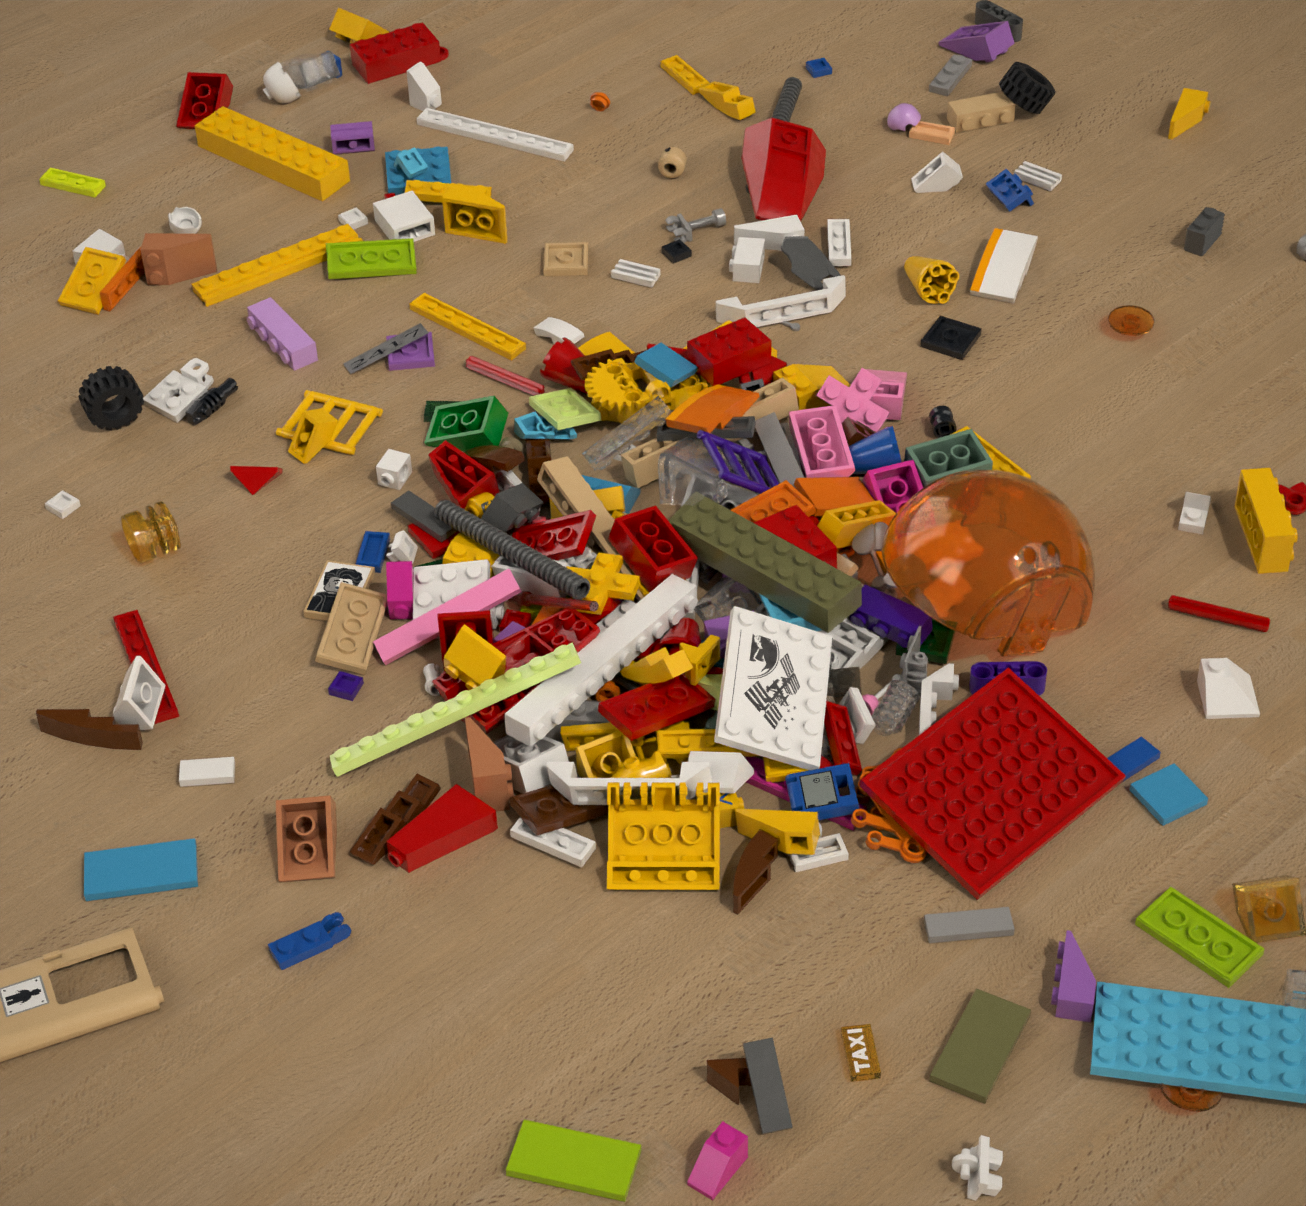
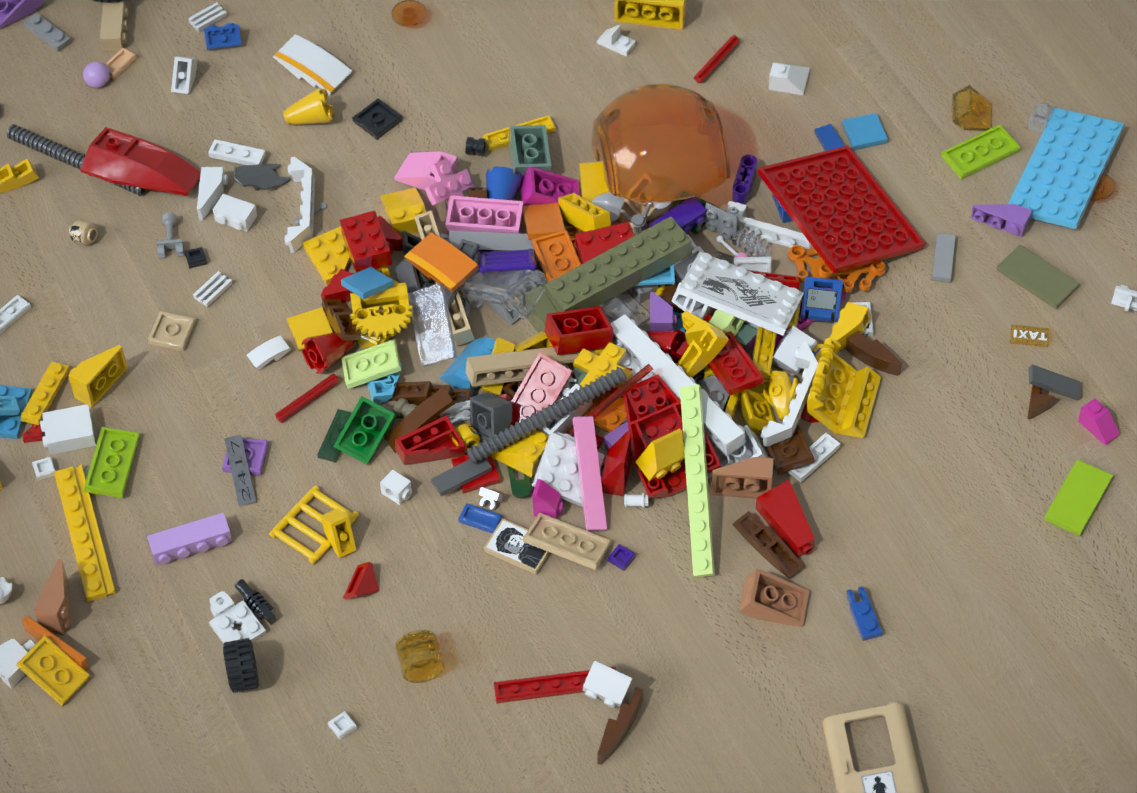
camera: 75 degrees left, 10 degrees up
(140, 869) = (768, 709): dark azure tile -> none
(207, 771) = (683, 656): white tile -> none
(468, 326) = (229, 412): yellow tile -> none

